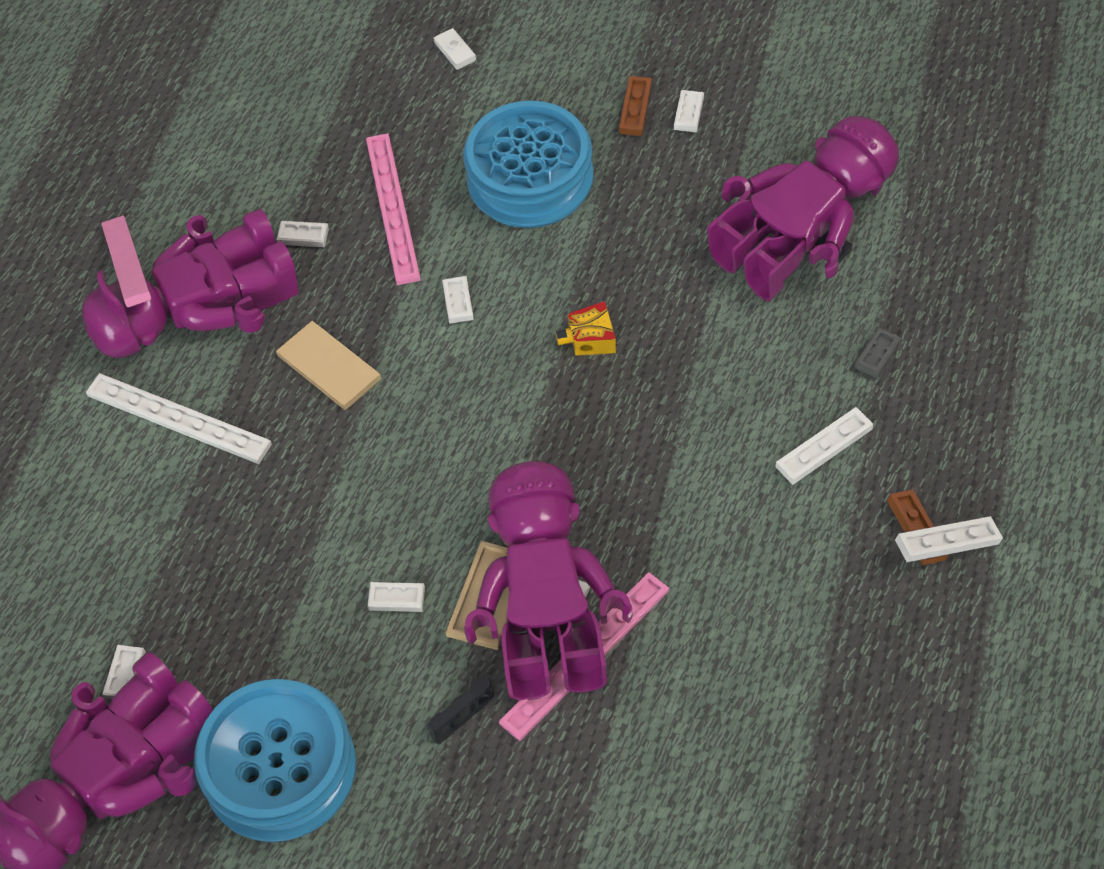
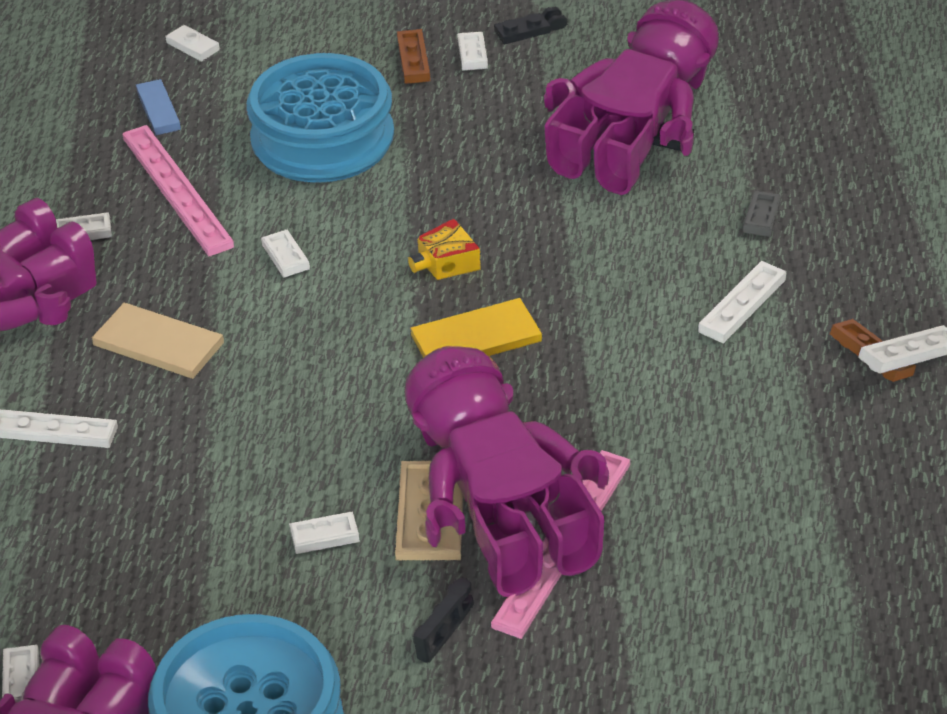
camera: 20 degrees left, 15 degrees down
(404, 114) = (158, 107): none -> medium blue tile
(587, 423) = (487, 329): none -> yellow tile
(751, 91) = (530, 25): none -> black hinge

